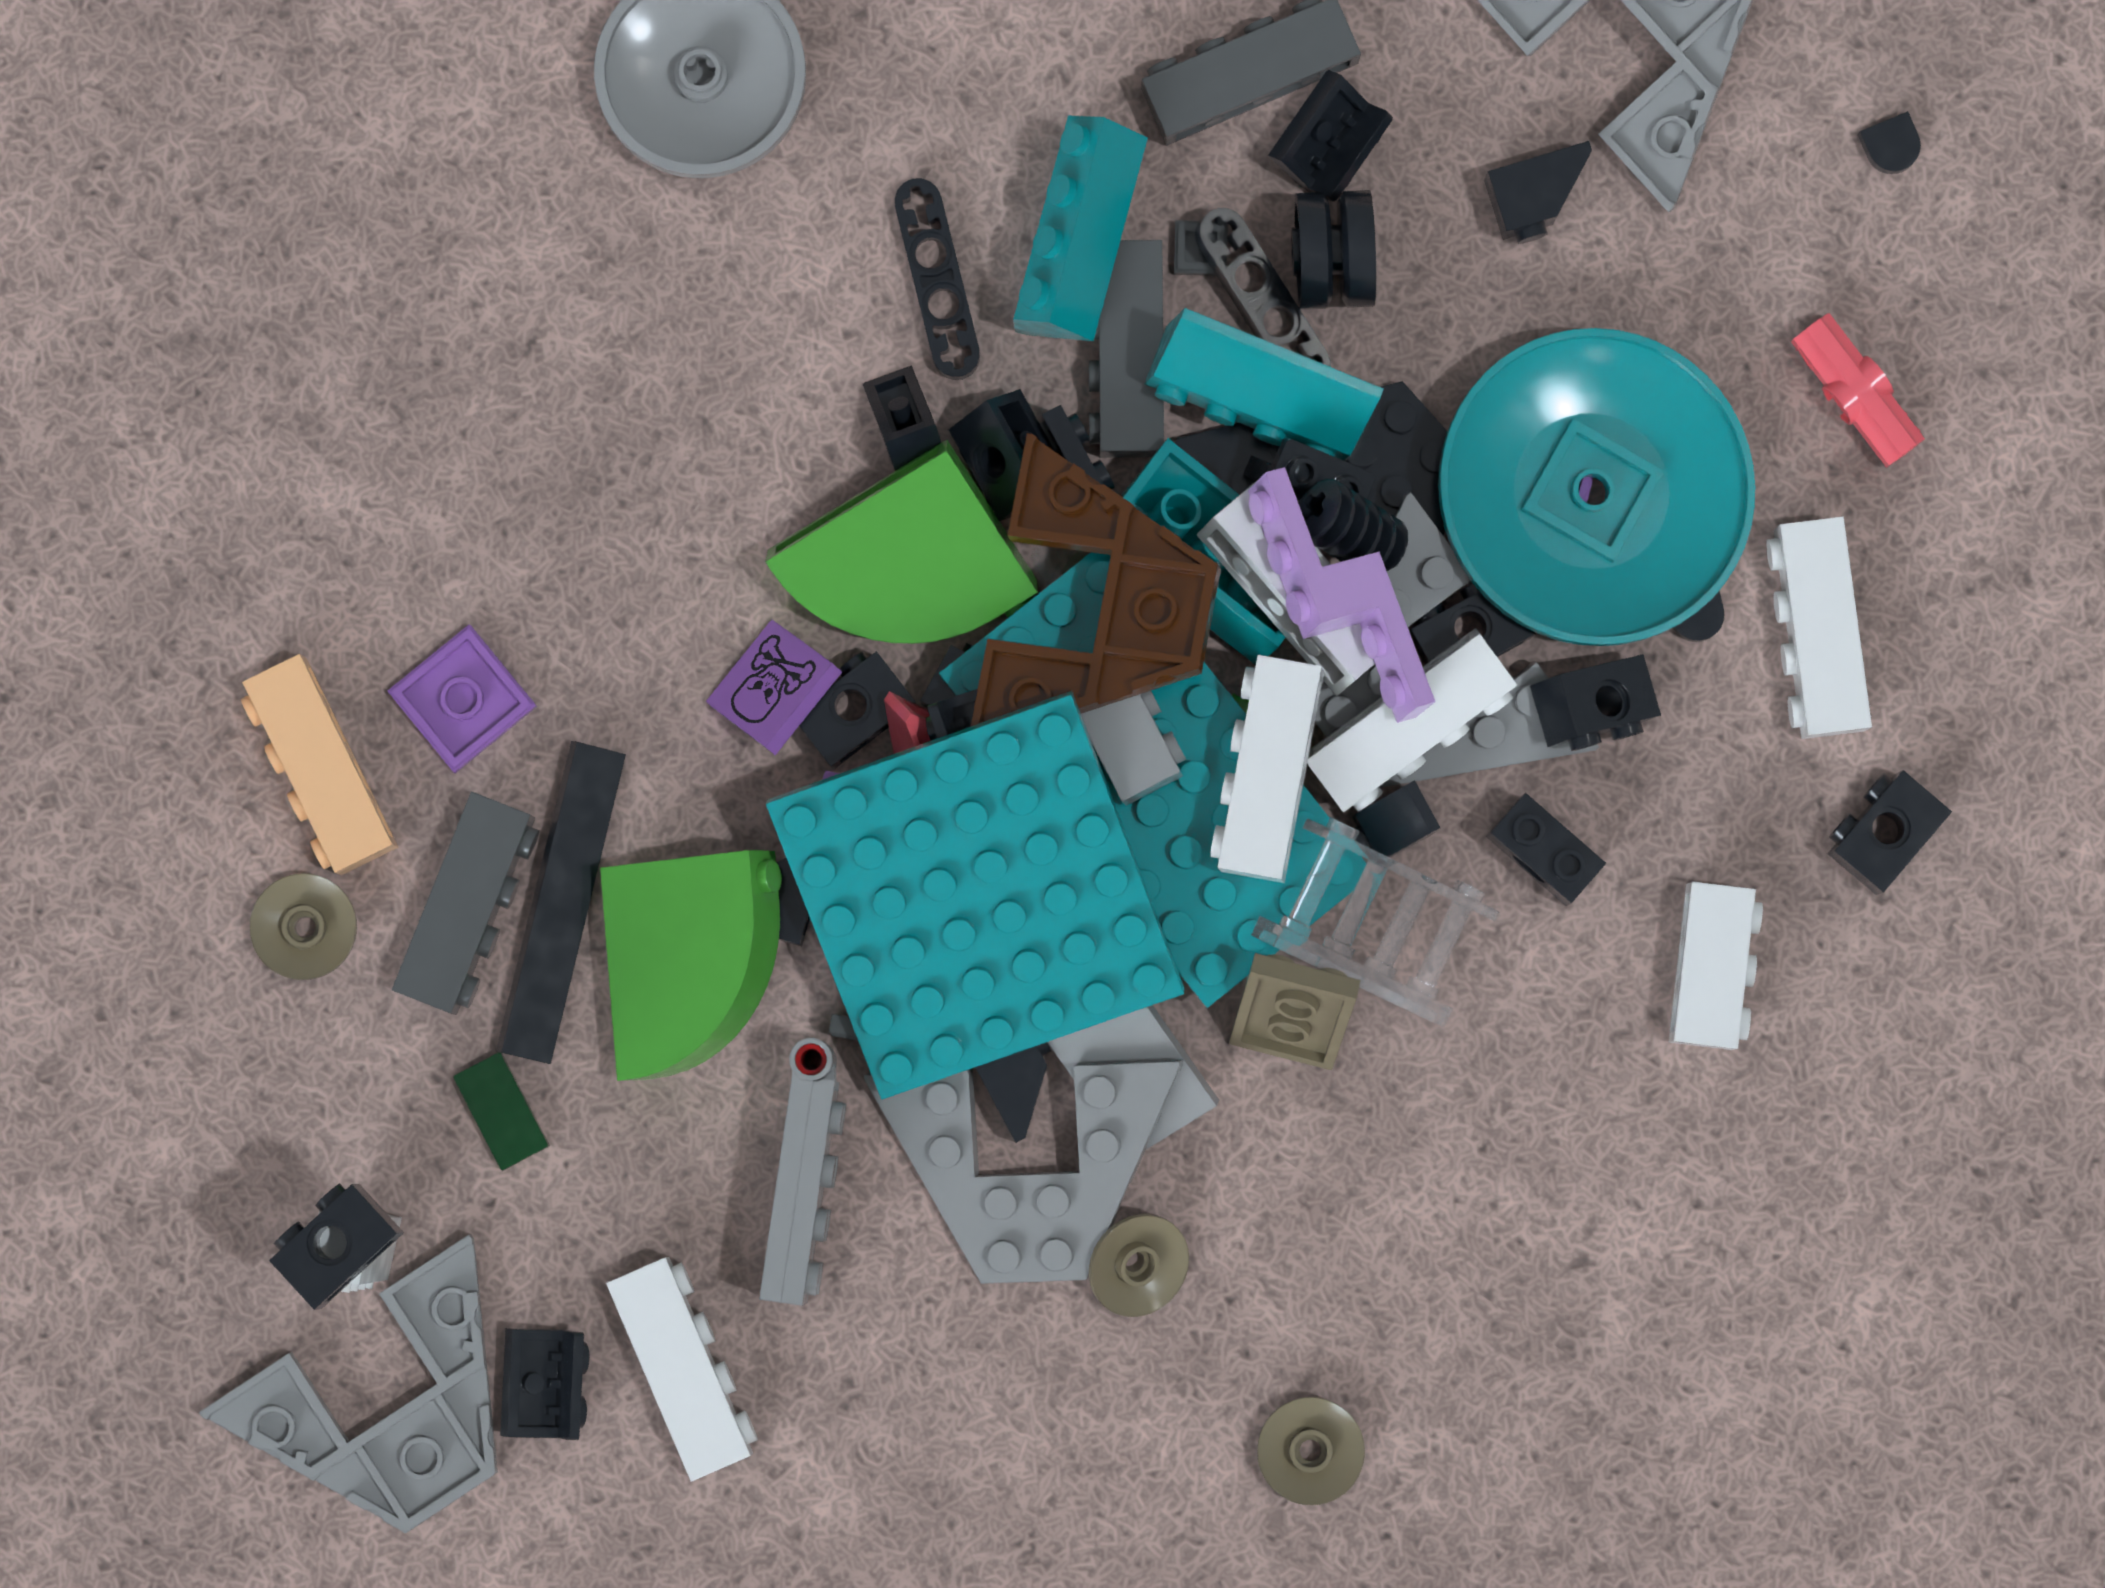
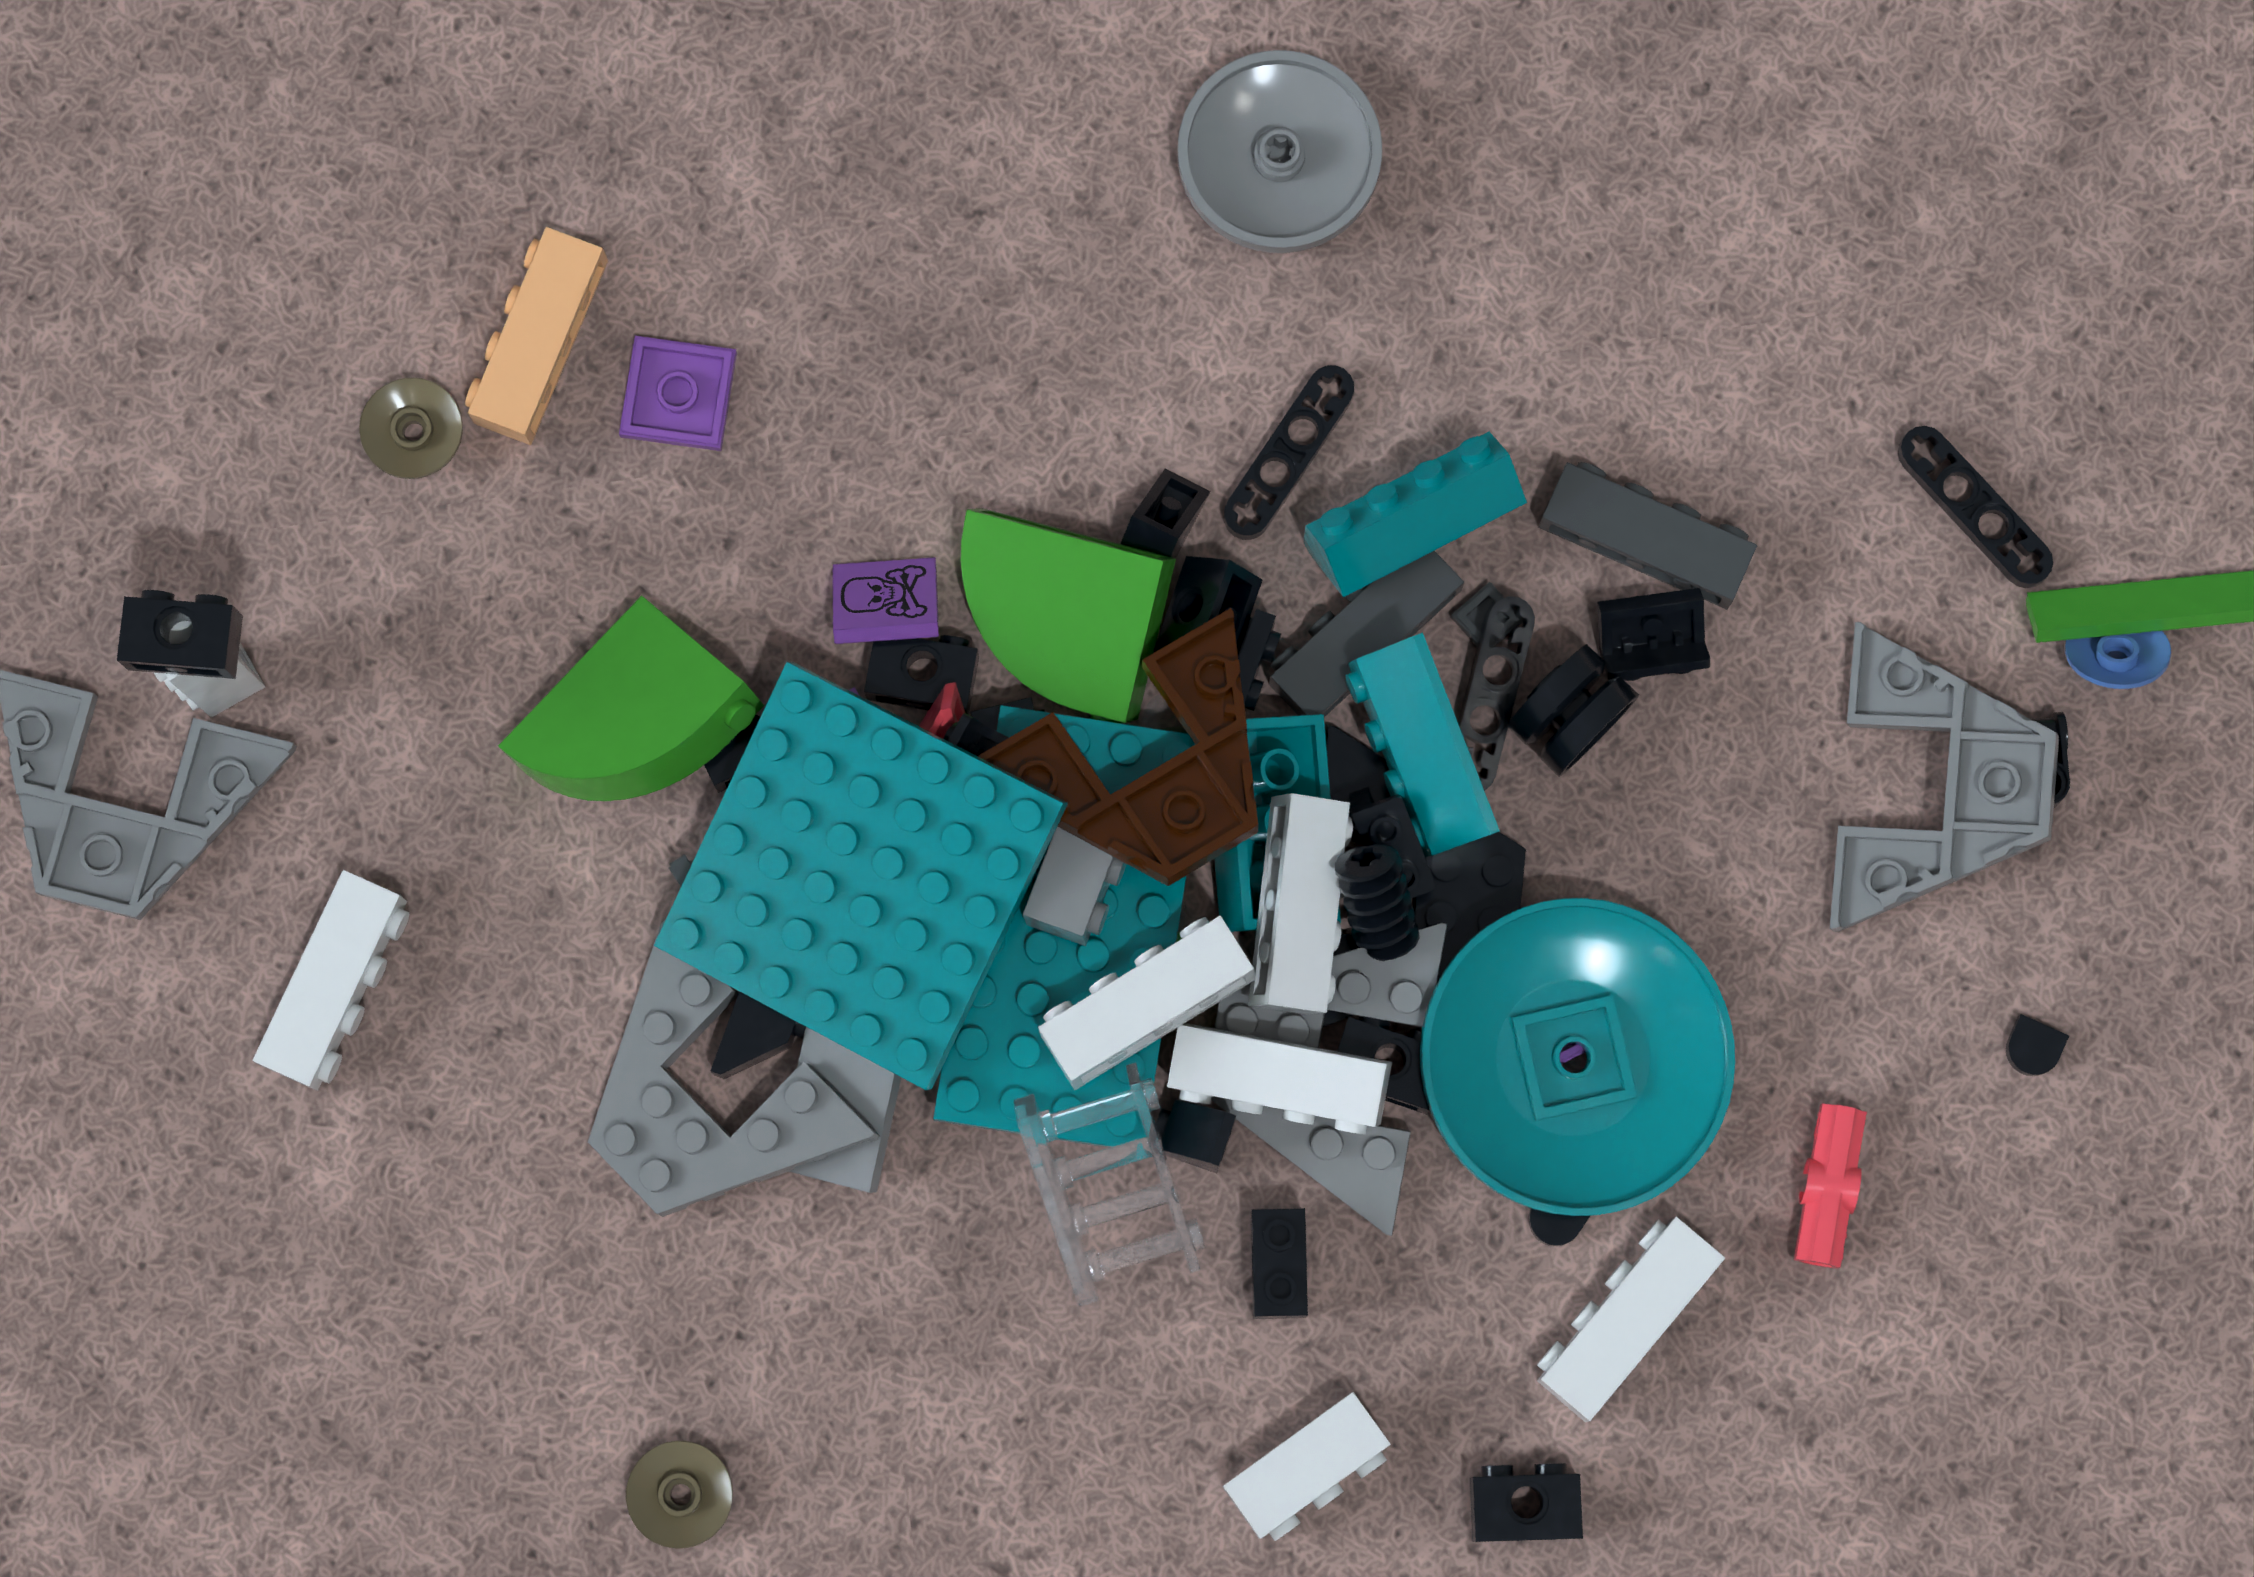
camera: 45 degrees right, 5 degrees down
(464, 904) = (530, 526): dark grey brick -> none
(501, 1111) = (405, 687): dark green tile -> none
(543, 1383) = (232, 893): black bracket -> none
(560, 902) = (593, 593): black tile -> none
(802, 1174) = (547, 940): light grey hinge -> none
(1152, 1278) = (698, 1263): dark tan dish -> none
(1294, 1010) = (988, 1183): dark tan plate -> none
(1340, 595) = (1318, 936): lavender bracket -> none
(1533, 191) = (1754, 818): black slope -> none
(1596, 701) = (1446, 1208): black brick -> none

